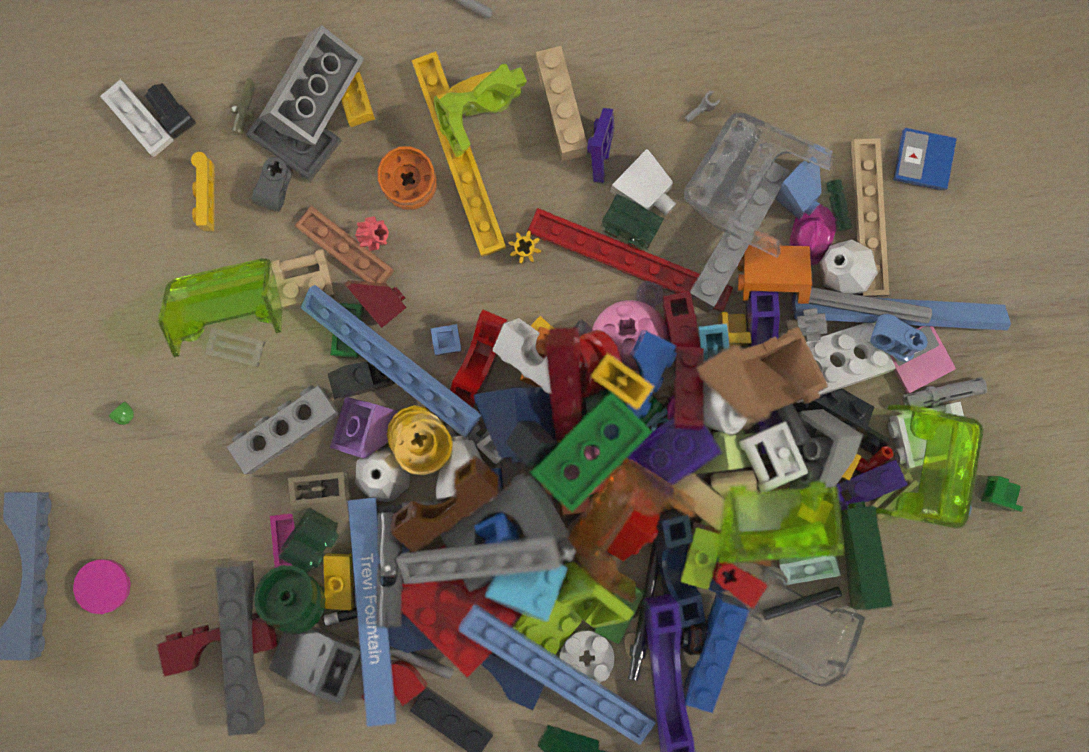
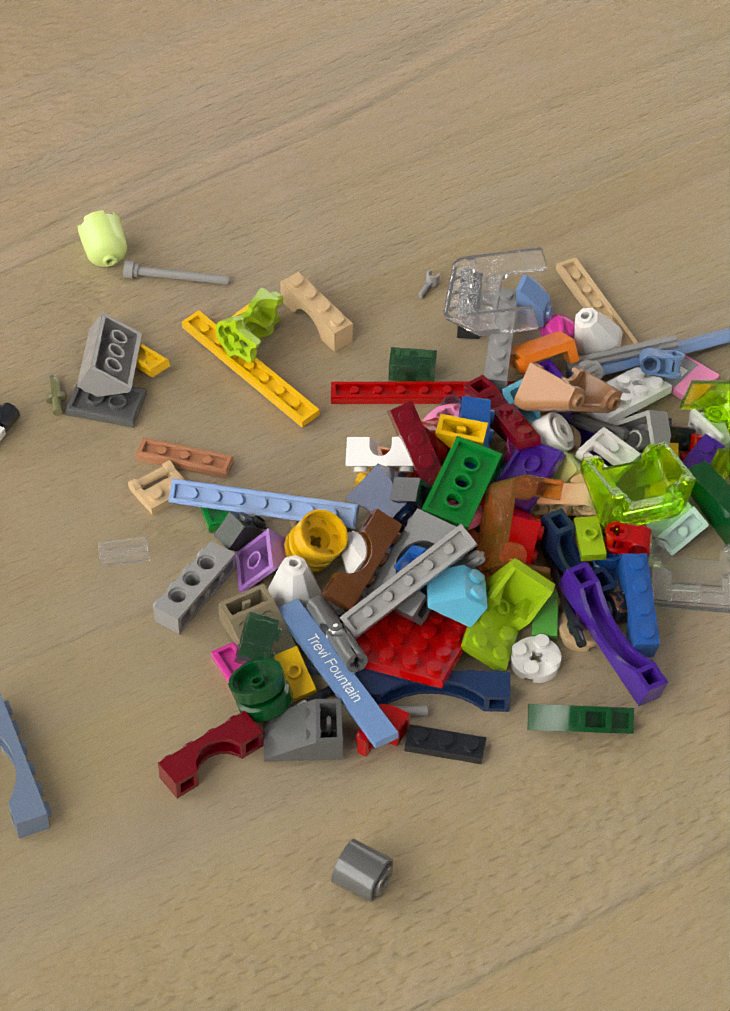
camera: 20 degrees left, 35 degrees down
(101, 586) = (83, 753): dark pink tile -> none
(122, 414) = (45, 623): bright green hinge -> none
(203, 191) = (48, 453): yellow plate -> none
(218, 297) = (105, 514): clear neon green windscreen -> none
(241, 684) = (248, 766): dark grey arch -> none
(272, 188) = (105, 431): dark grey piece -> none
(372, 233) = (204, 436): coral gear -> none
(378, 299) = (229, 471): dark red slope -> none
(402, 164) = (217, 388): orange wheel -> none
(446, 340) = (301, 485): medium blue plate -> none
(479, 358) = (335, 471): red arch -> none
(532, 248) = (335, 406): yellow gear -> none
(556, 674) = (517, 659): medium blue plate -> none
(600, 143) = (359, 322): dark purple wing -> none
(645, 184) = (410, 334): white torso -> none
(801, 603) = (694, 557): black bar -> none
(838, 205) = (565, 304): clear green axle -> none
(924, 159) = (617, 262): blue tile -> none

